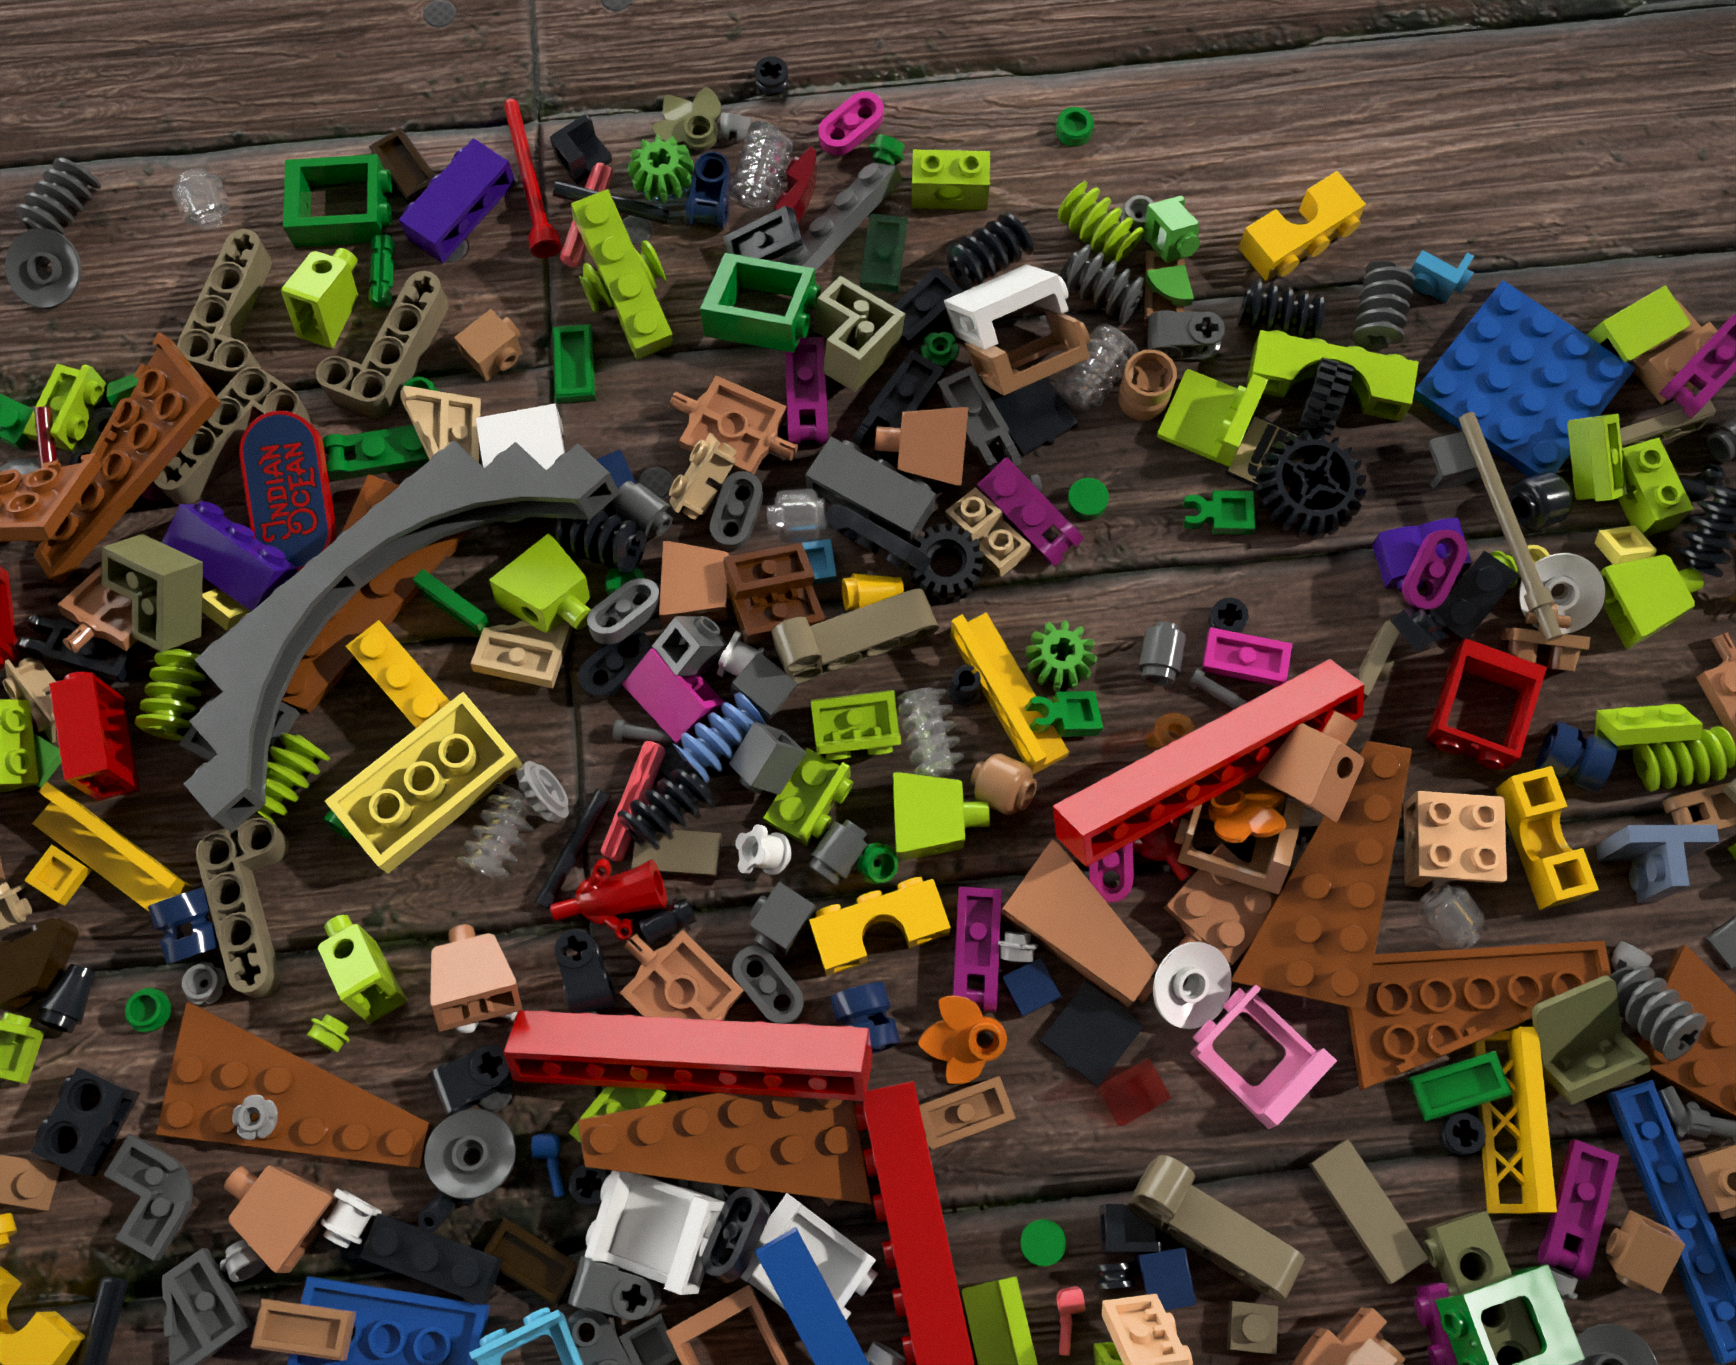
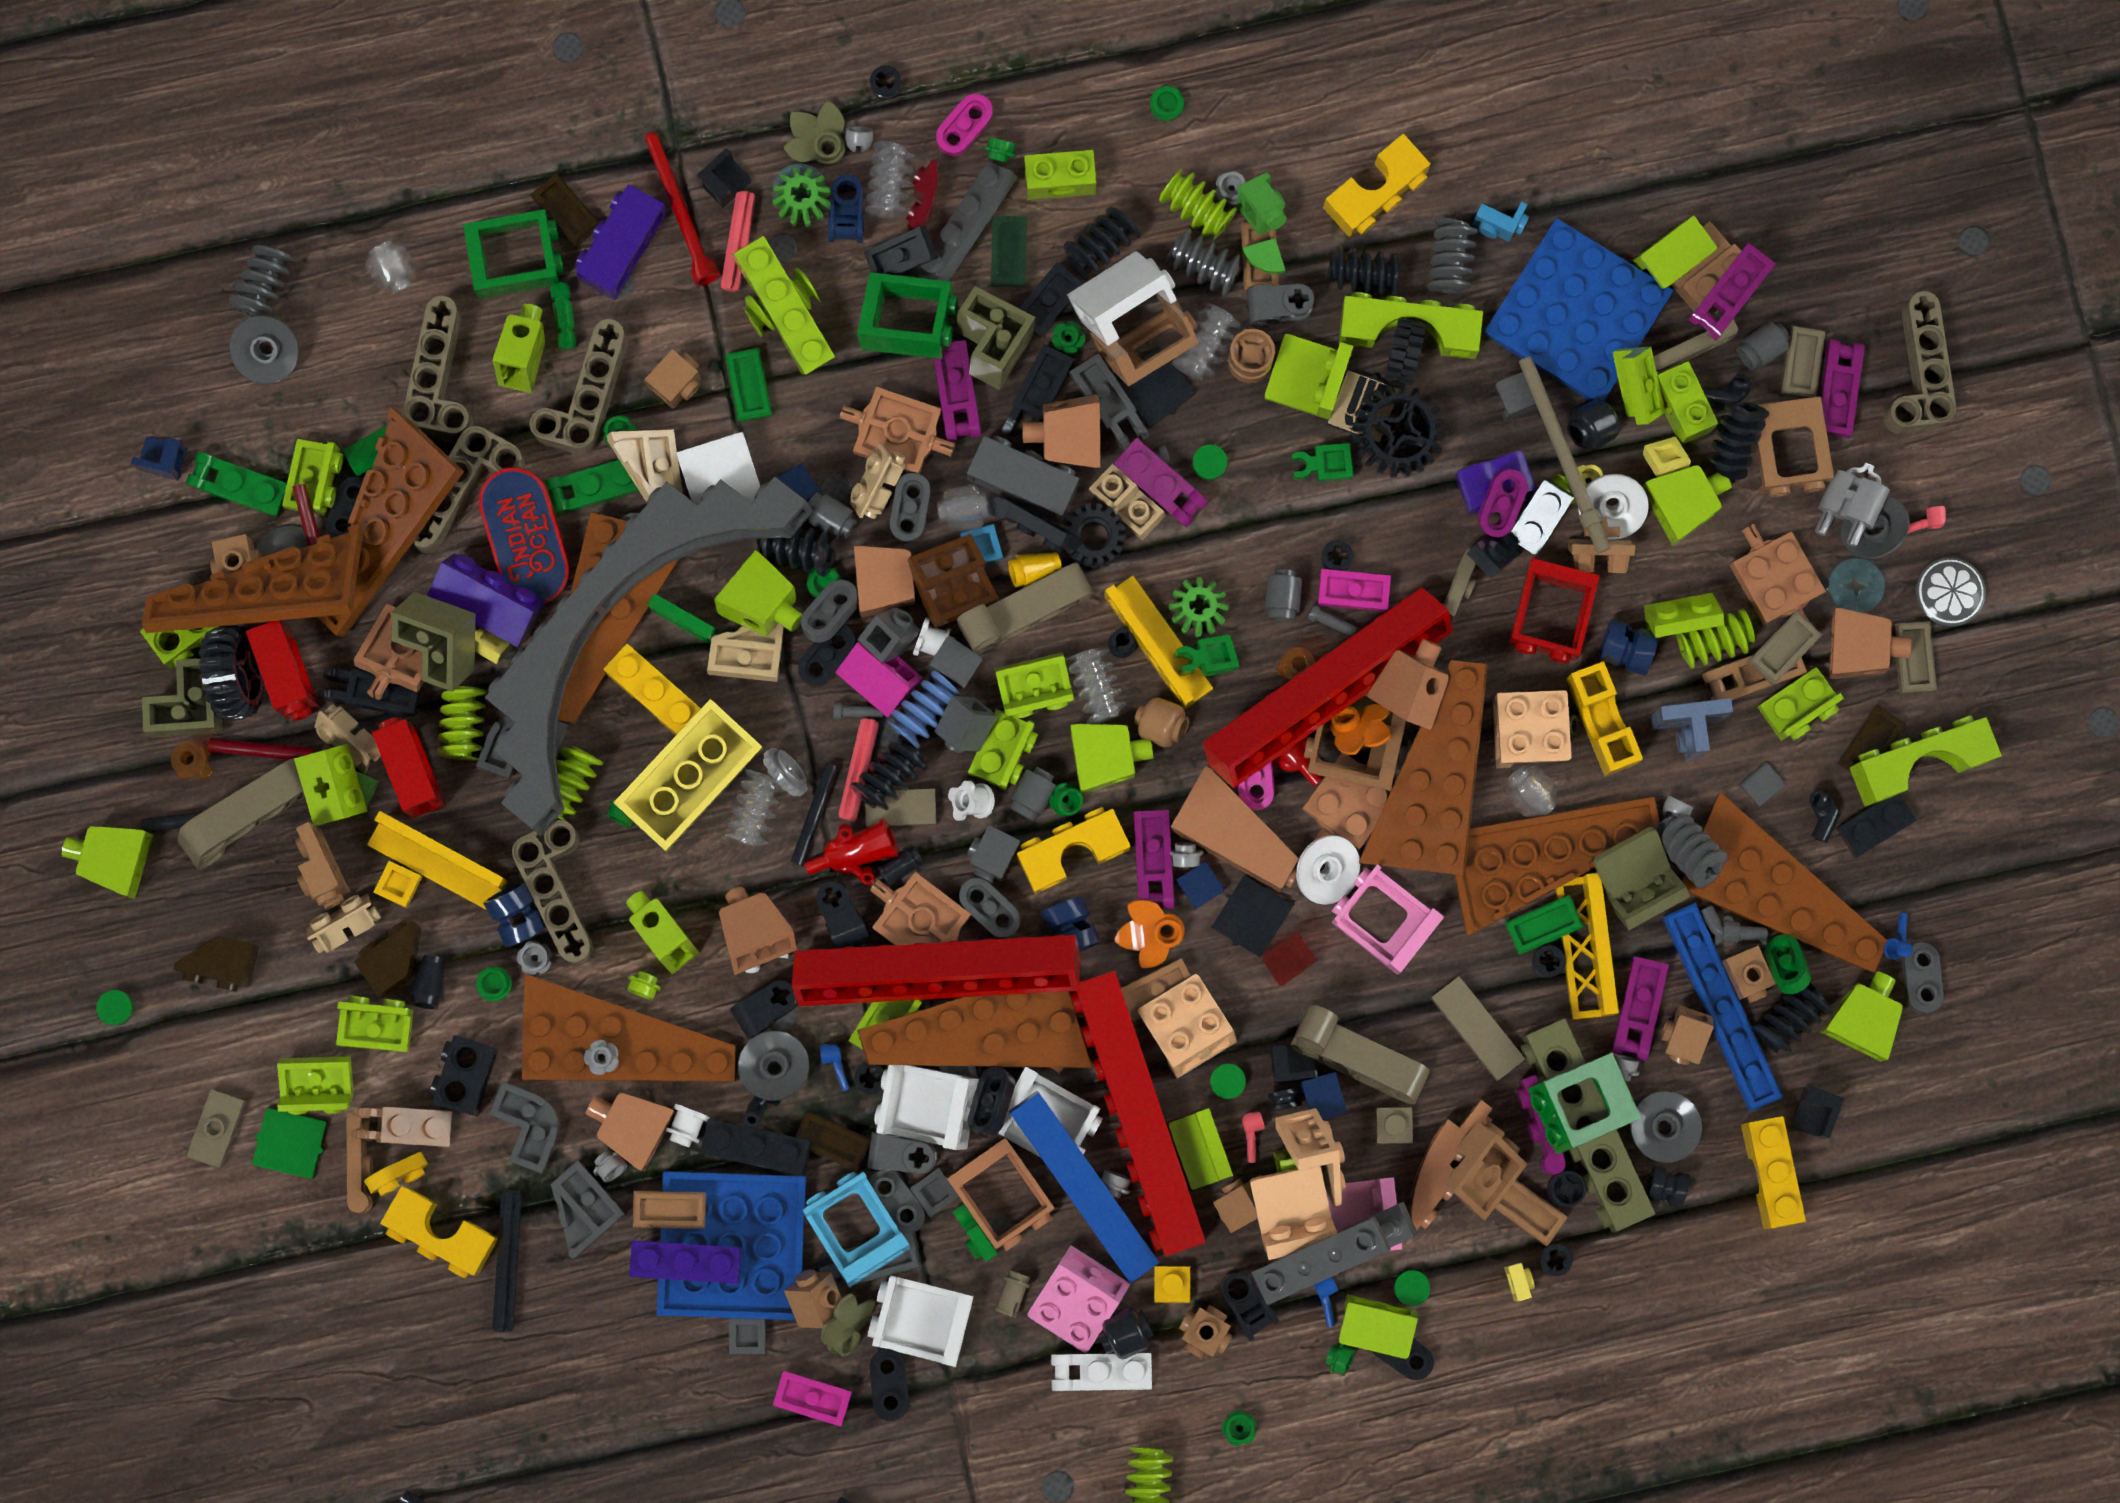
camera: 10 degrees left, 10 degrees up
(623, 205) = (759, 230): black bar -> none
(999, 1163) = (1187, 1025): none -> light nougat bracket

